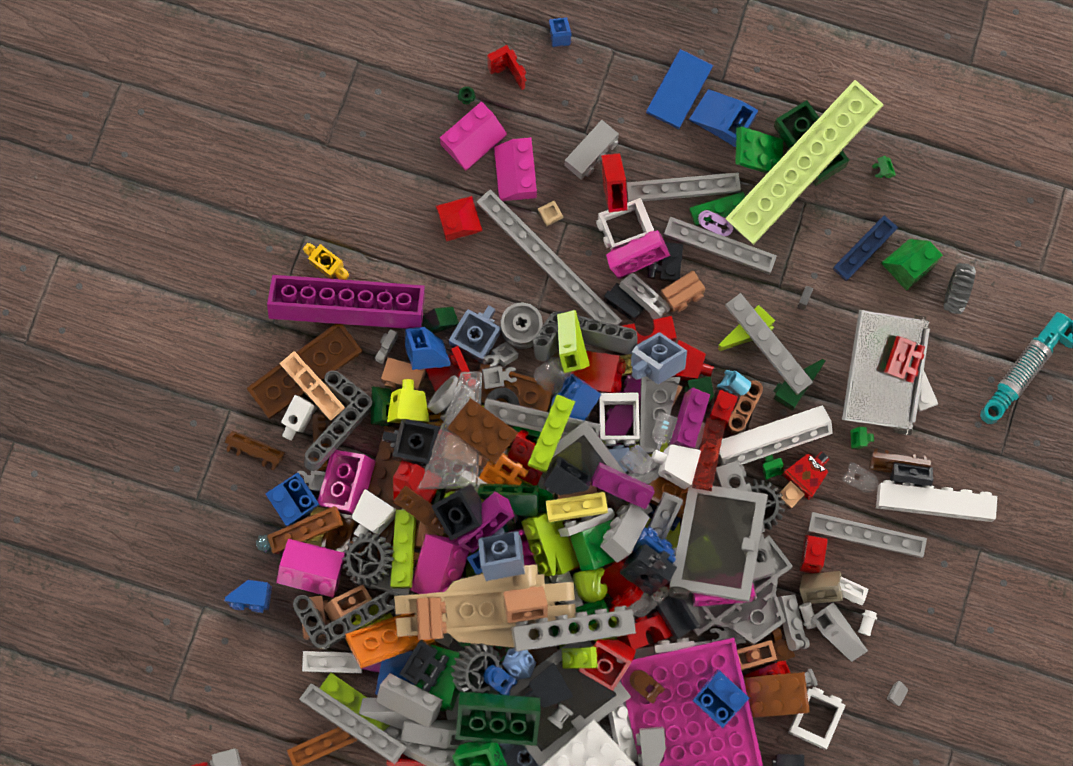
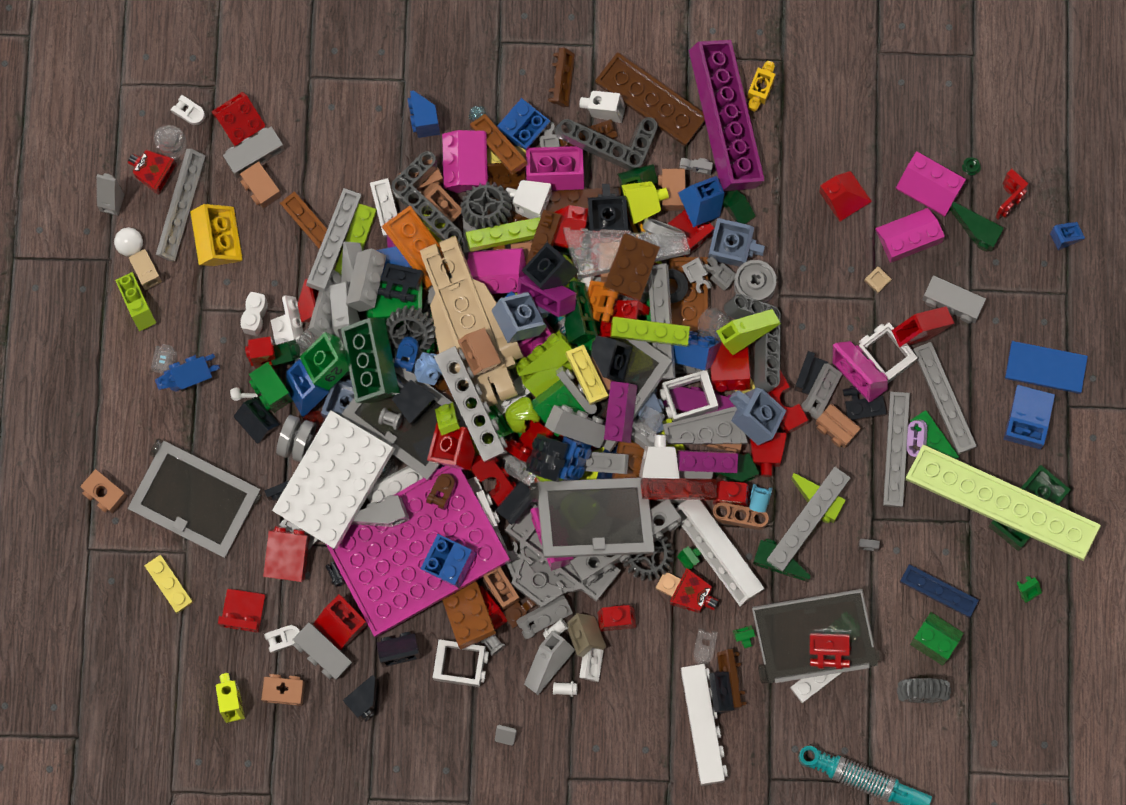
camera: 80 degrees right, 0 degrees up
(312, 385) = (636, 109): light nougat slope -> none
(430, 618) = (441, 270): nougat brick -> none
(531, 106) = (980, 230): none -> dark green slope
(546, 258) = (828, 290): light grey plate -> none
(664, 428) = (690, 438): clear brick -> none
(757, 150) = (1003, 455): green plate -> none
(867, 535) = (650, 666): light grey plate -> none

